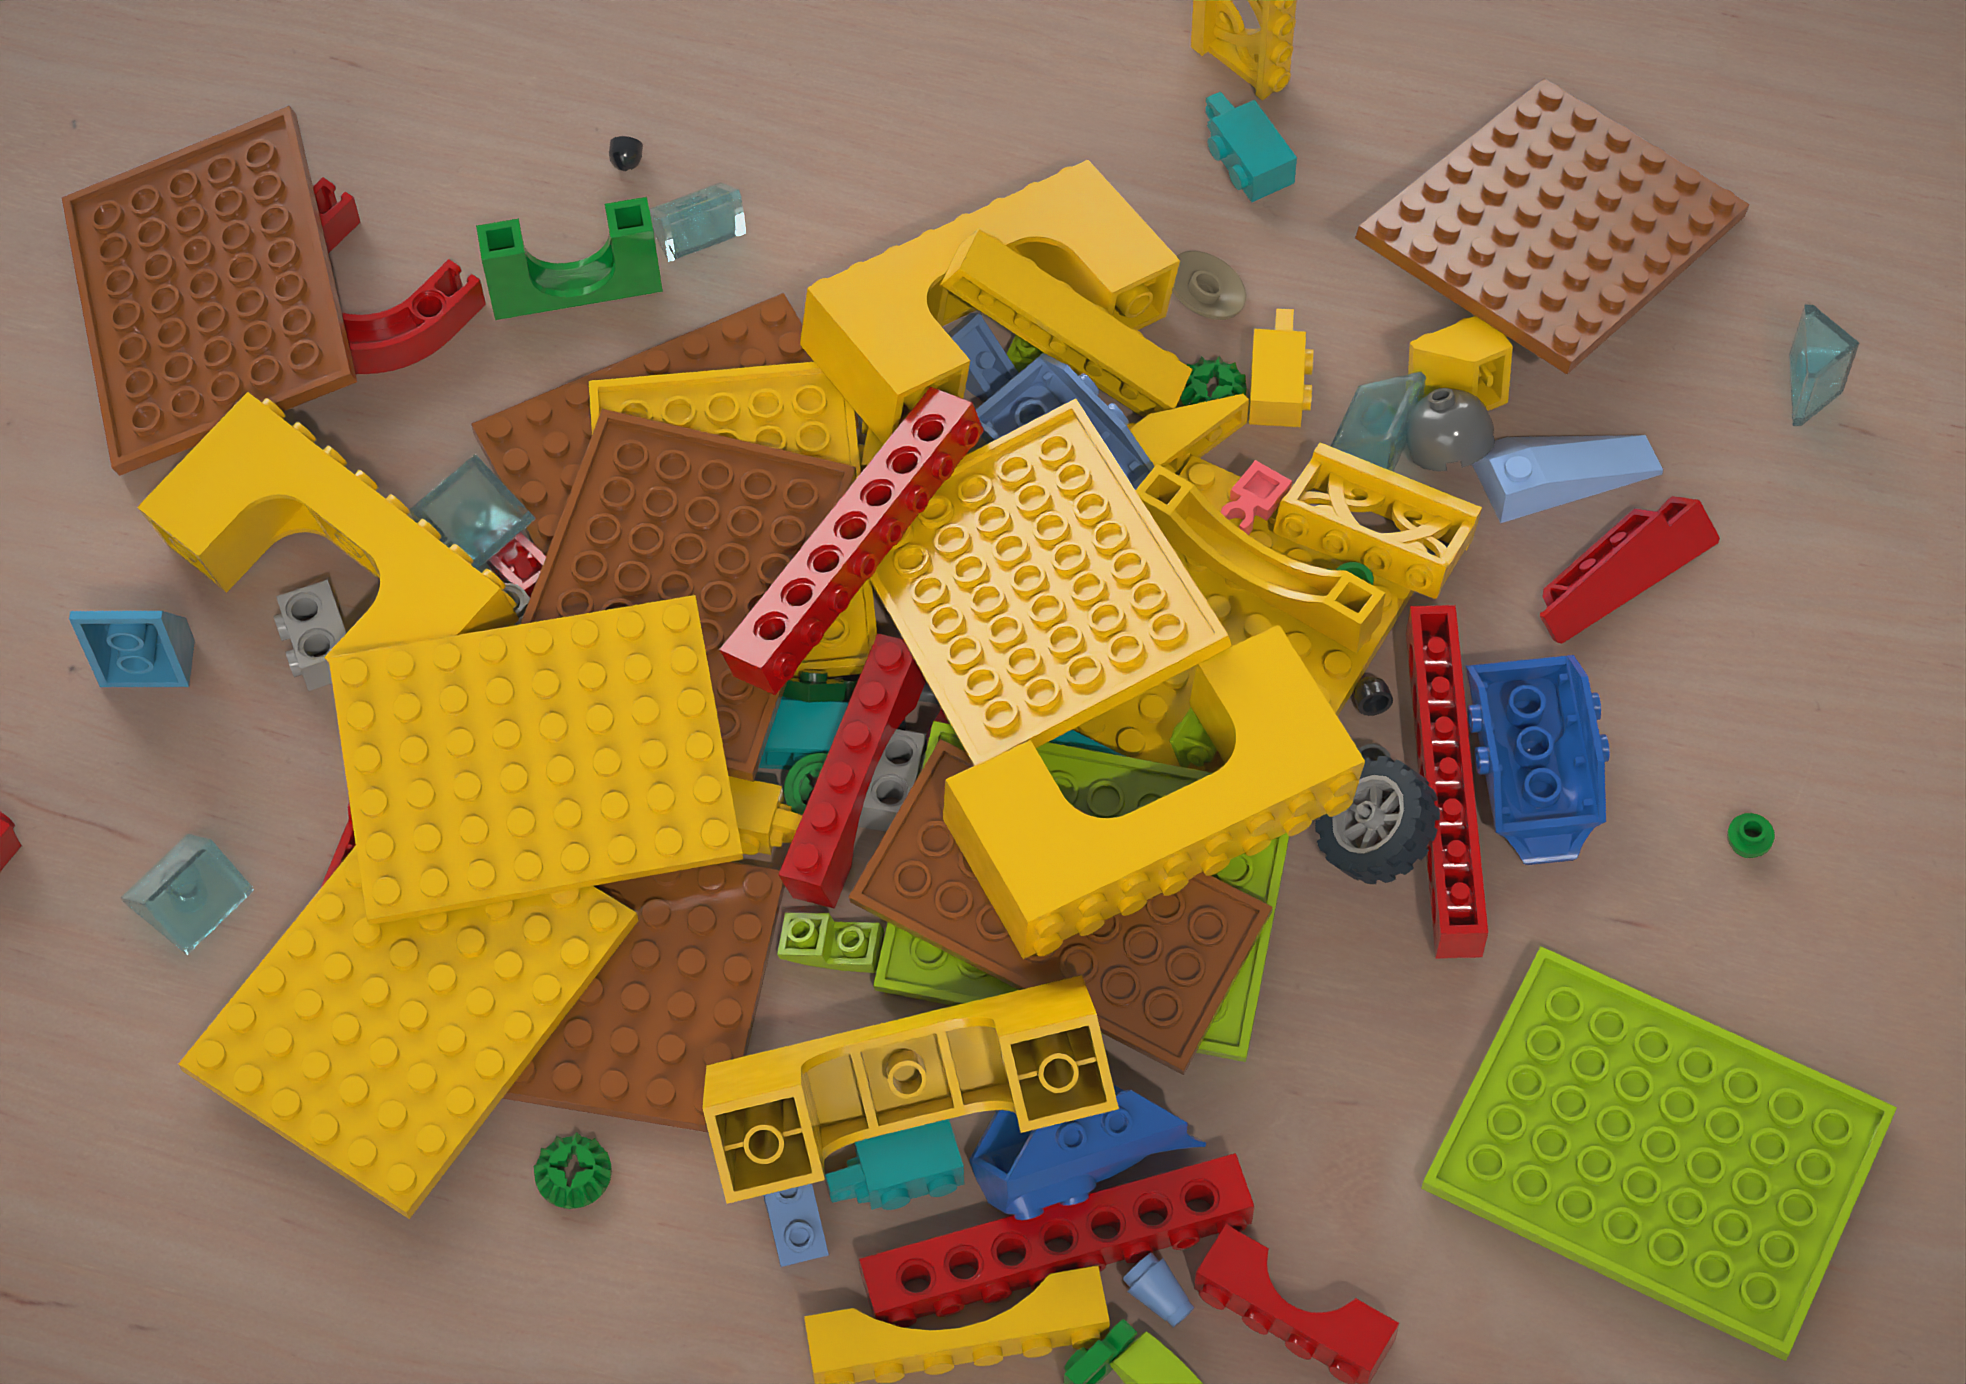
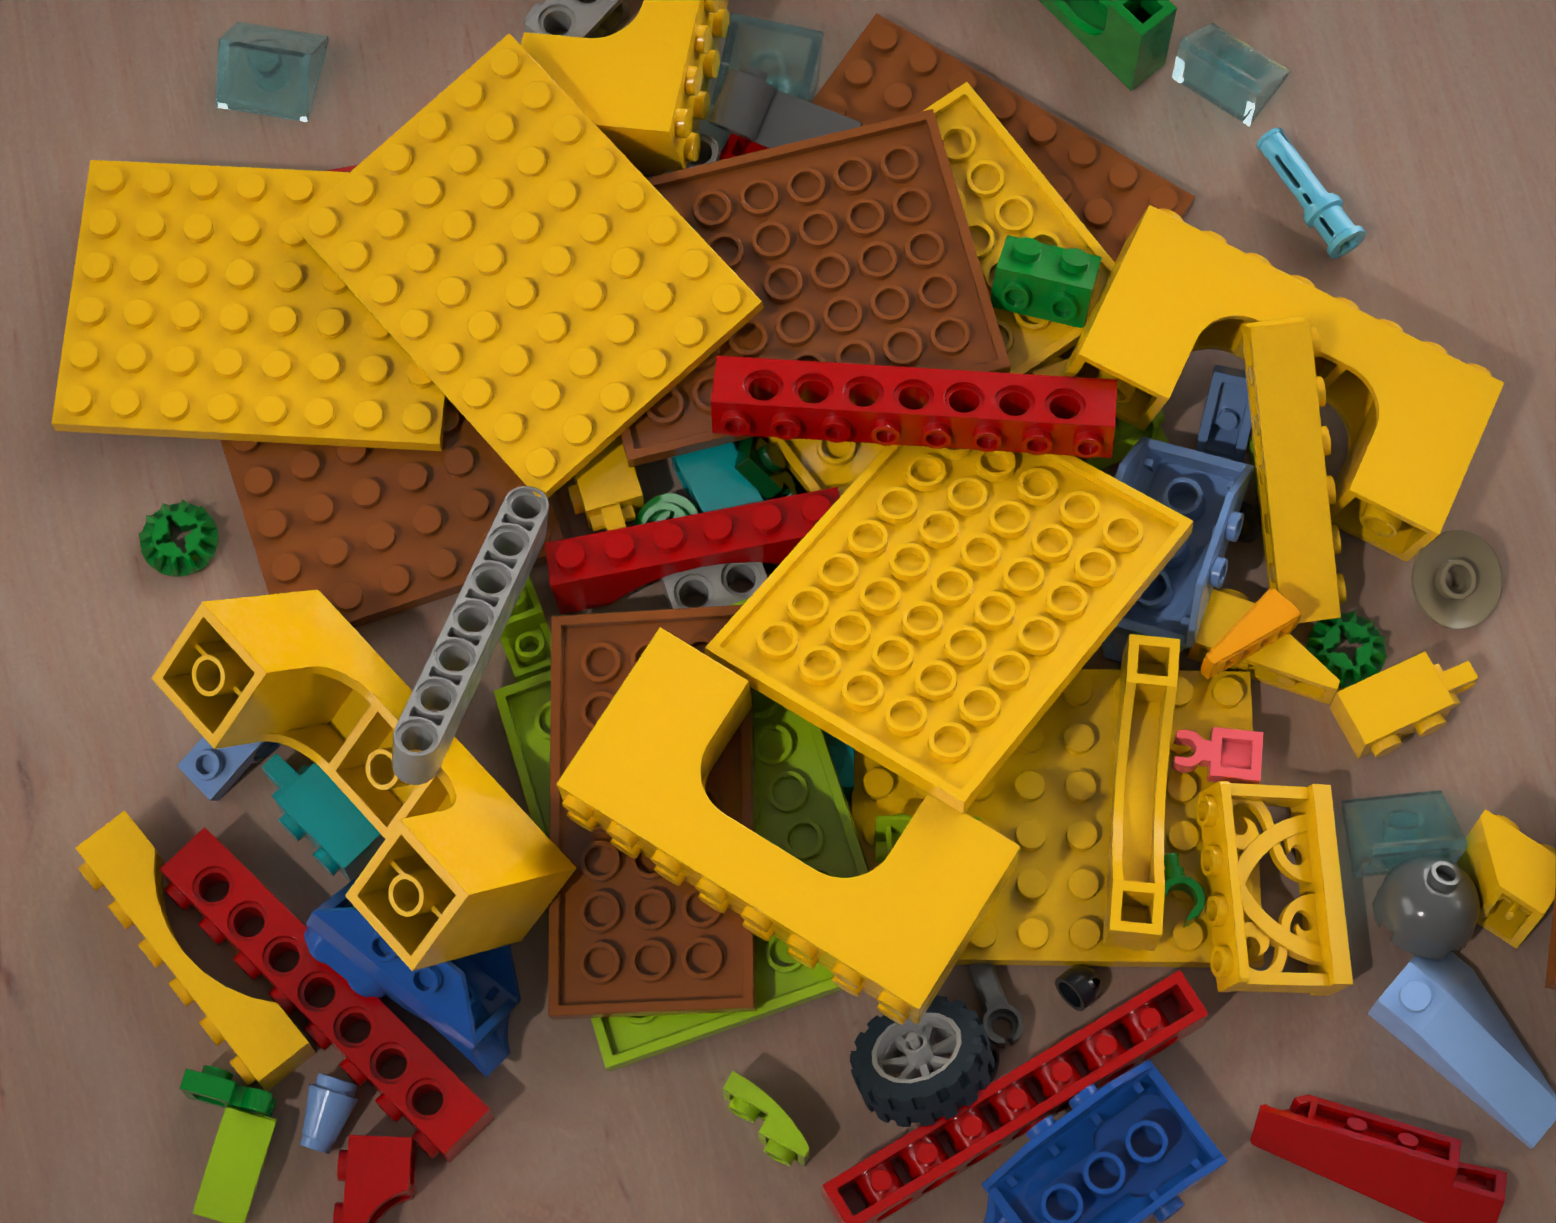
camera: 60 degrees right, 10 degrees up
(519, 531) = (770, 116): none -> dark grey door
(799, 409) = (1044, 281): none -> green bracket
(839, 950) = (500, 570): none -> light grey beam
(859, 218) = (1321, 208): none -> medium azure pin
(1172, 417) = (1261, 626): none -> light orange slope
(1366, 956) = (778, 1132): none -> lime slope

